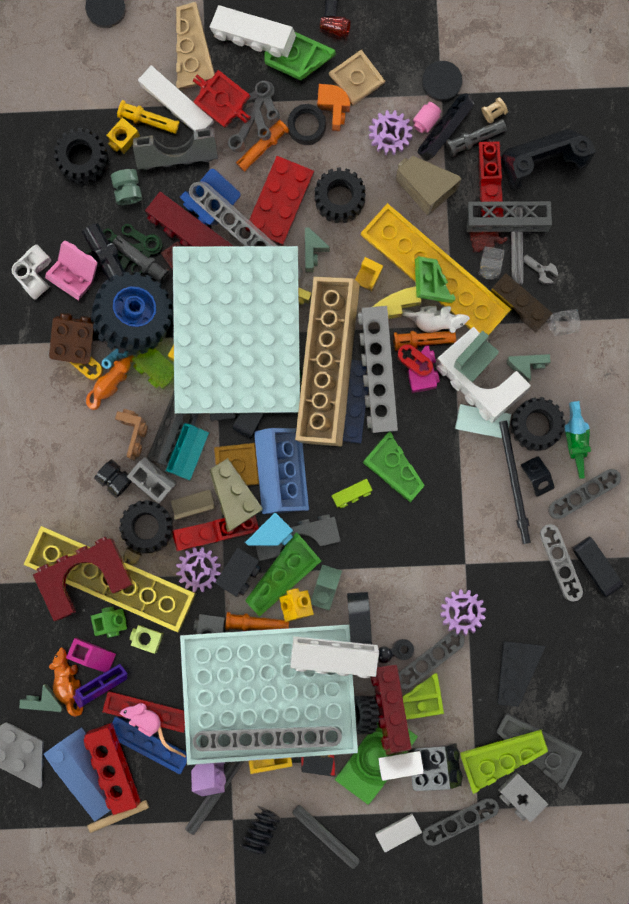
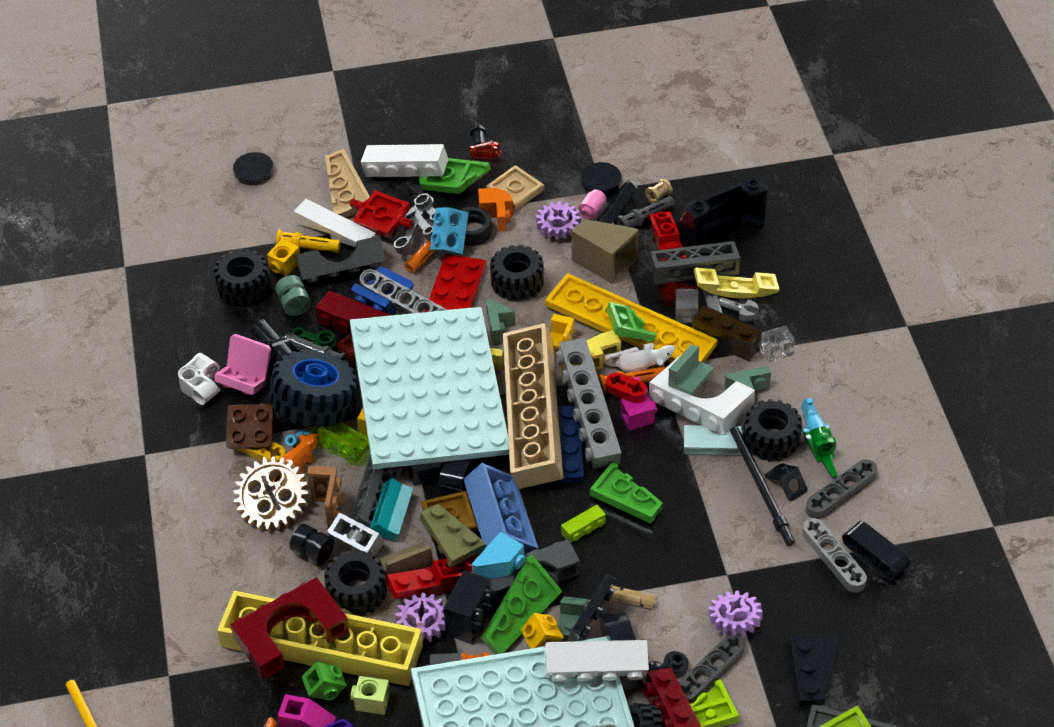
camera: 10 degrees left, 35 degrees down
(66, 424) = (251, 503): none -> gear
(282, 137) = (449, 230): none -> medium azure brick
(345, 591) = (592, 610): none -> black wing
(379, 576) = (634, 597): none -> tan axle
(543, 244) = (736, 287): none -> light yellow slope

